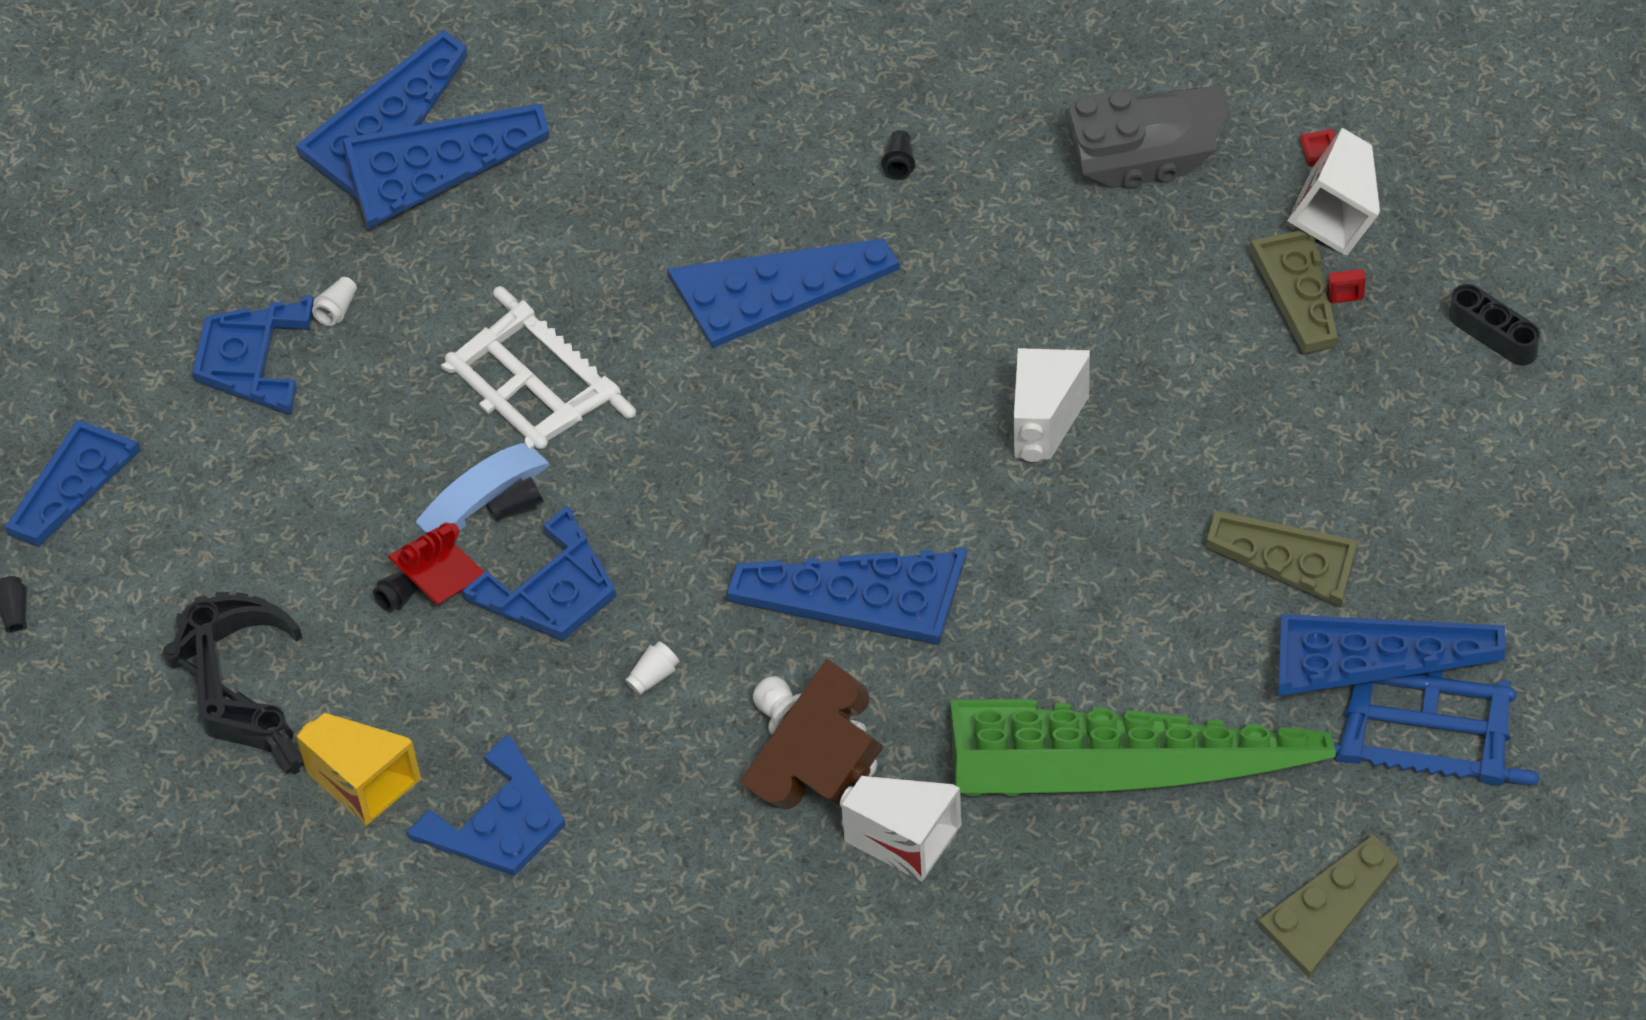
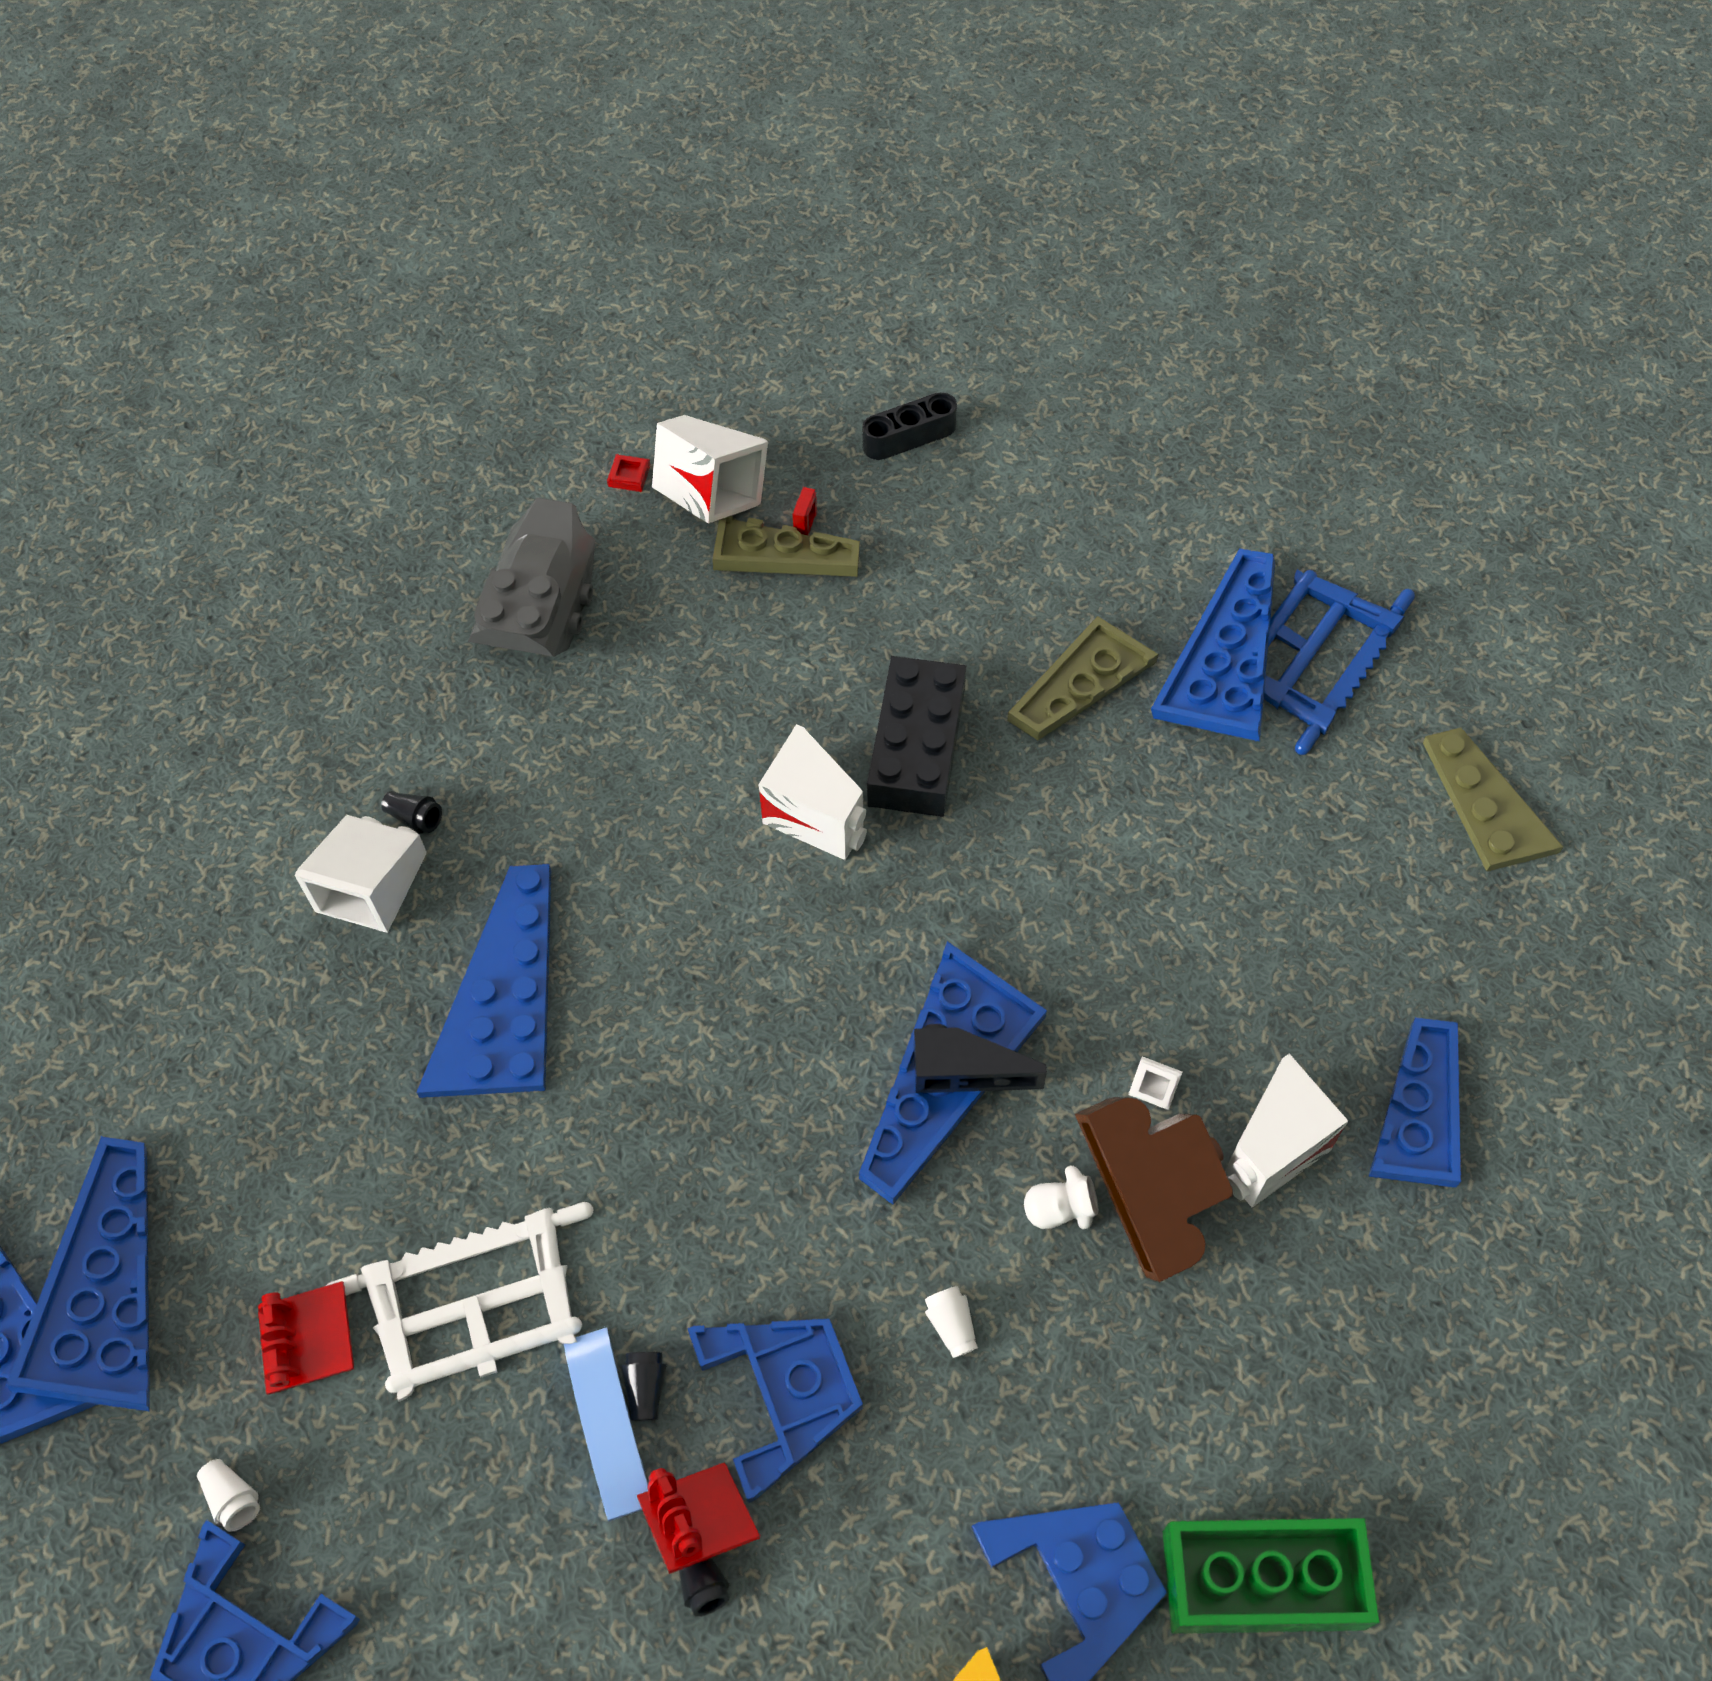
camera: 70 degrees left, 5 degrees up
(457, 289) = (304, 1337): none -> red hinge
(548, 921) = (1269, 1576): none -> green brick
(826, 146) = (362, 871): none -> white slope
(853, 582) = (965, 1062): none -> black slope
(918, 737) = (1155, 1083): none -> white slope
(977, 934) = (1423, 1114): none -> blue wing
(1025, 749) = (1231, 950): bright green wedge -> none
(1153, 454) = (916, 736): none -> black brick

